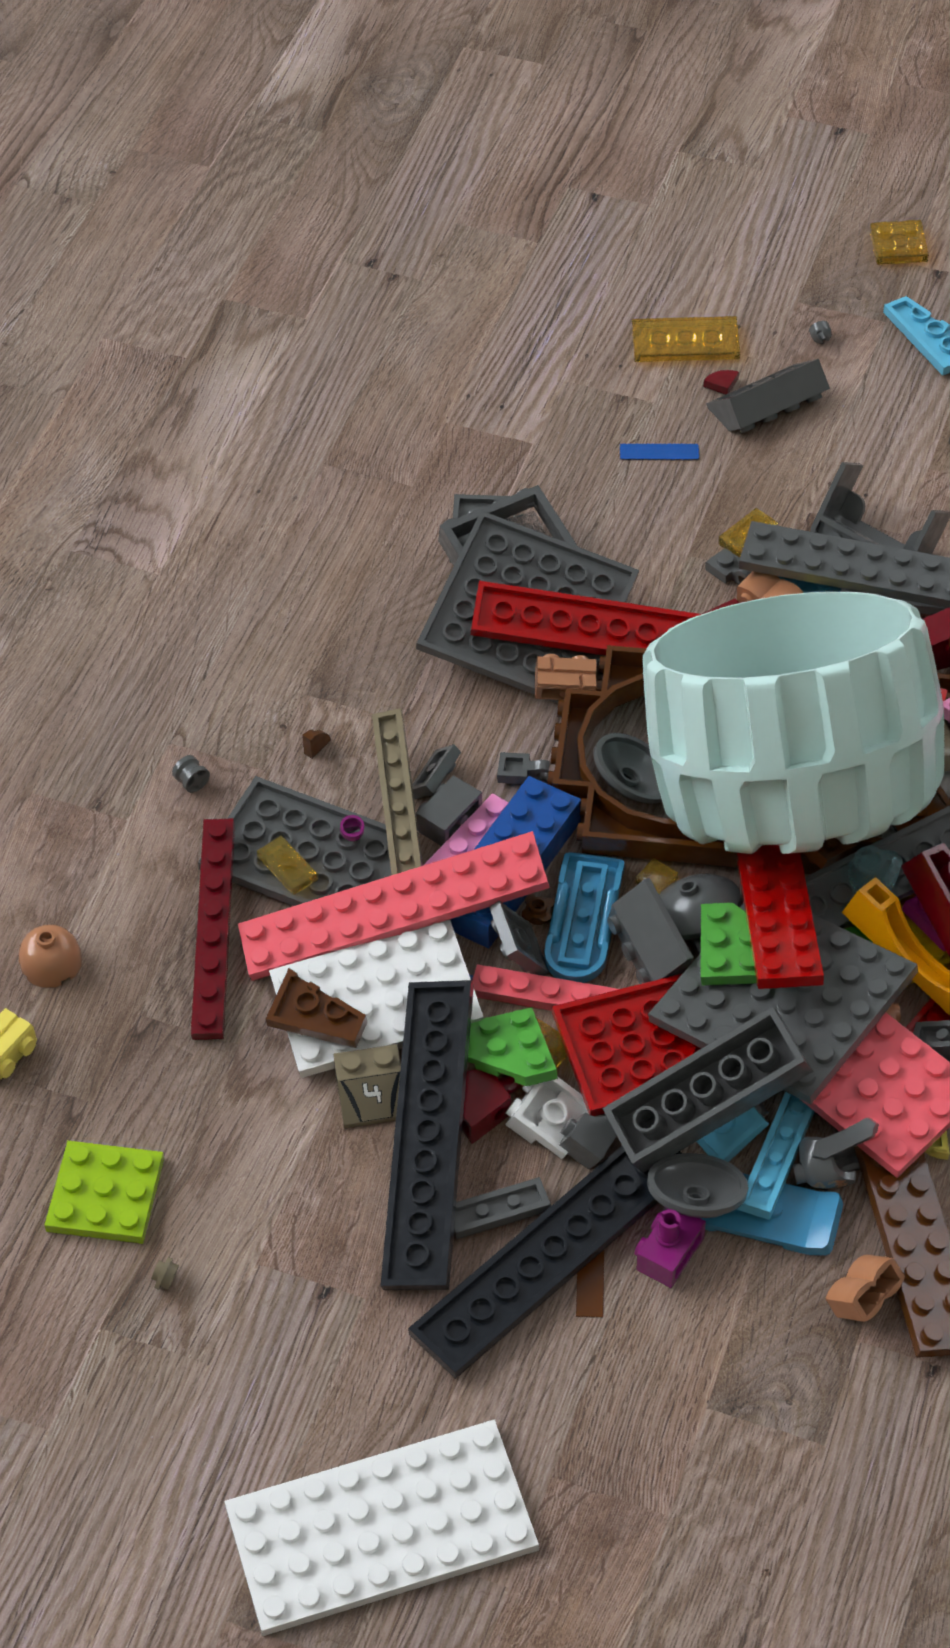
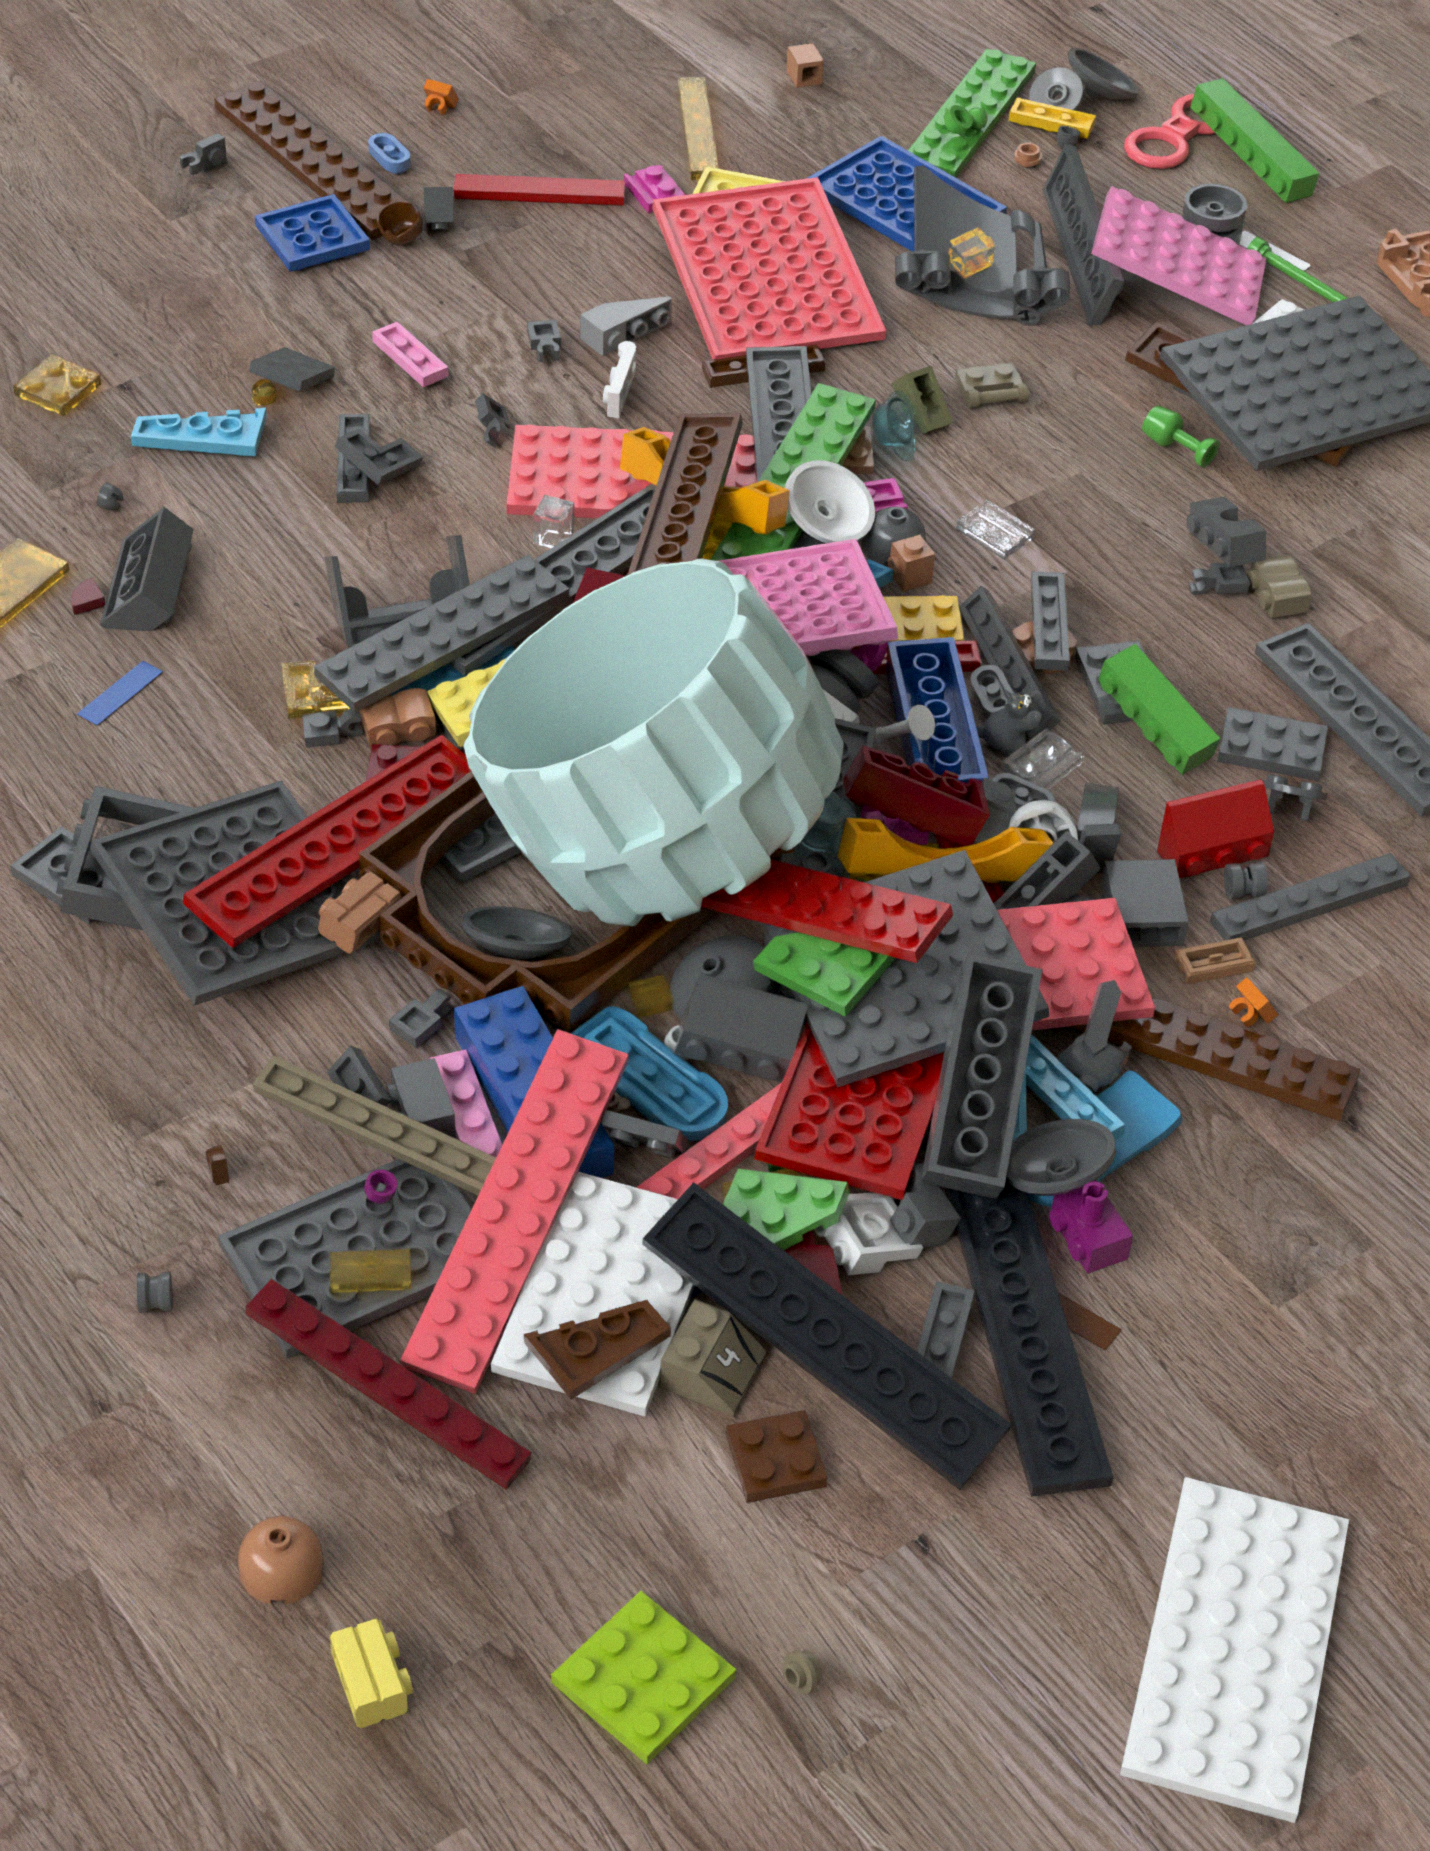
camera: 60 degrees left, 5 degrees down
(327, 1168) = (776, 1456): none -> reddish brown plate
(865, 1287) = (1247, 1110): nougat brick -> none

